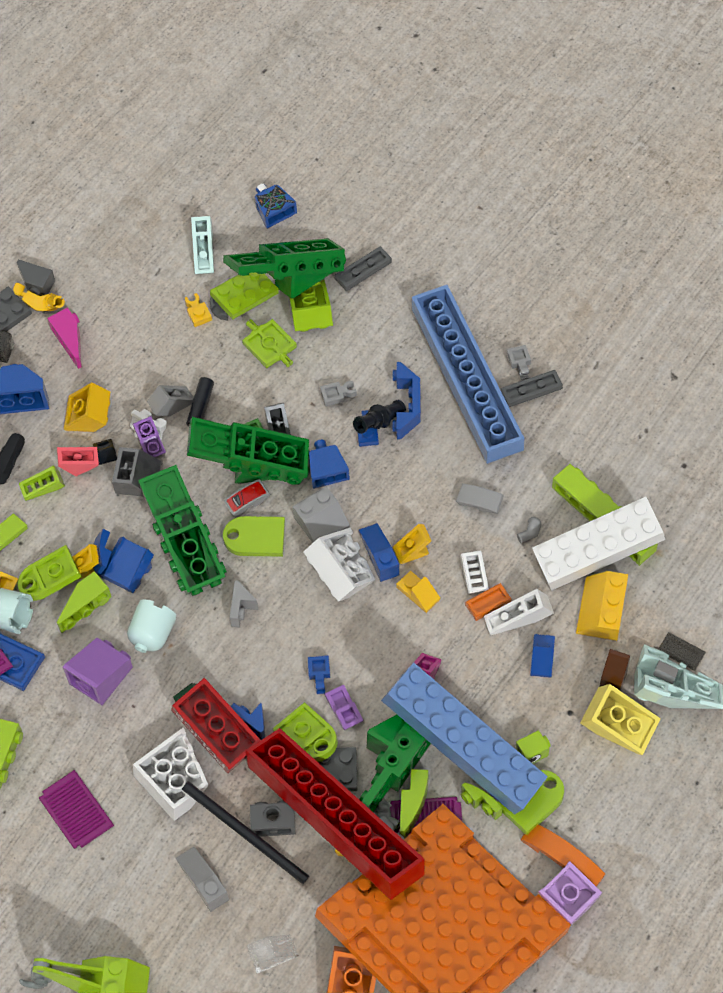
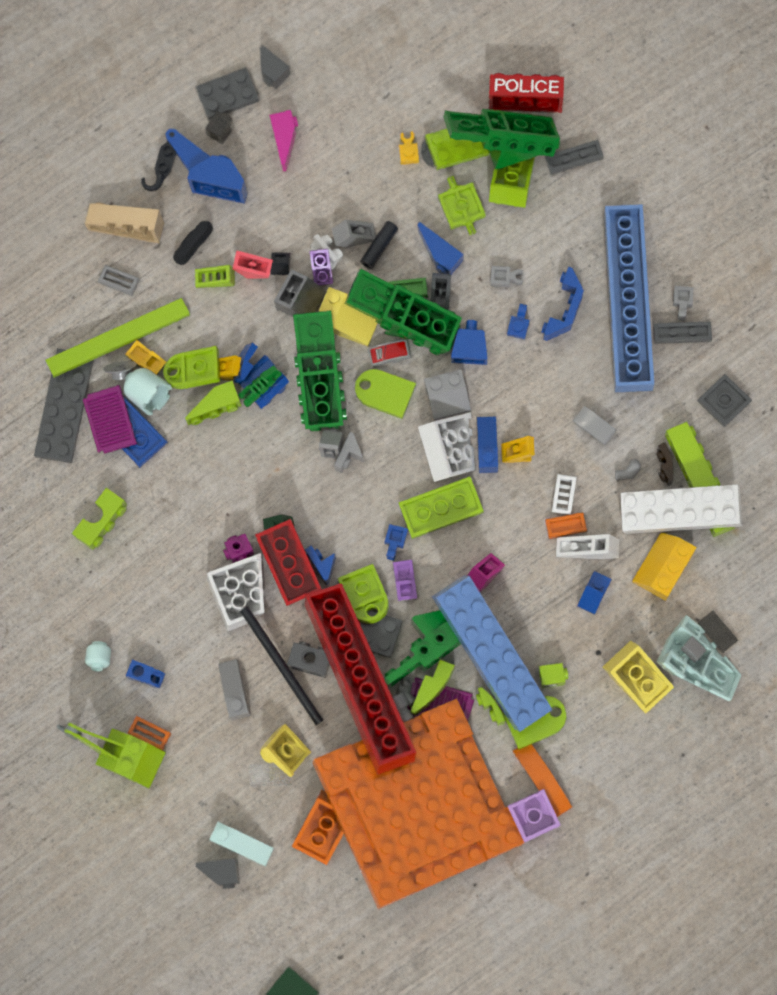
camera: 25 degrees right, 15 degrees up
(41, 892) = (98, 656): none -> light aqua head
(45, 302) = (269, 95): yellow arm -> none
(75, 810) = (149, 591): magenta window -> none
(87, 409) = (277, 217): yellow slope -> none
(98, 670) = (207, 472): medium lavender slope -> none
(99, 894) = (145, 674): none -> blue leg
(124, 567) = (259, 385): none -> green hinge
(130, 947) = (163, 740): none -> orange tile
(150, 626) = (263, 450): light aqua cylinder -> none
(156, 731) = (237, 548): none -> magenta brick
(201, 477) = (346, 320): none -> light yellow slope
(202, 244) = (435, 83): light aqua slope -> none
(219, 600) = (331, 443): none -> light grey slope
(263, 389) = (443, 255): none -> blue slope
(274, 204) = (515, 59): torso -> none
(279, 918) = (284, 750): none -> light yellow slope
(297, 222) = (526, 93): none -> red brick
(354, 625) = (441, 507): none -> lime plate
(378, 416) = (532, 316): black piece -> none
(418, 591) = (508, 494): yellow slope -> none
(567, 514) = (666, 470): none -> dark brown slope
(597, 436) = (724, 400): none -> dark grey plate
(615, 669) = (649, 633): reddish brown slope -> none

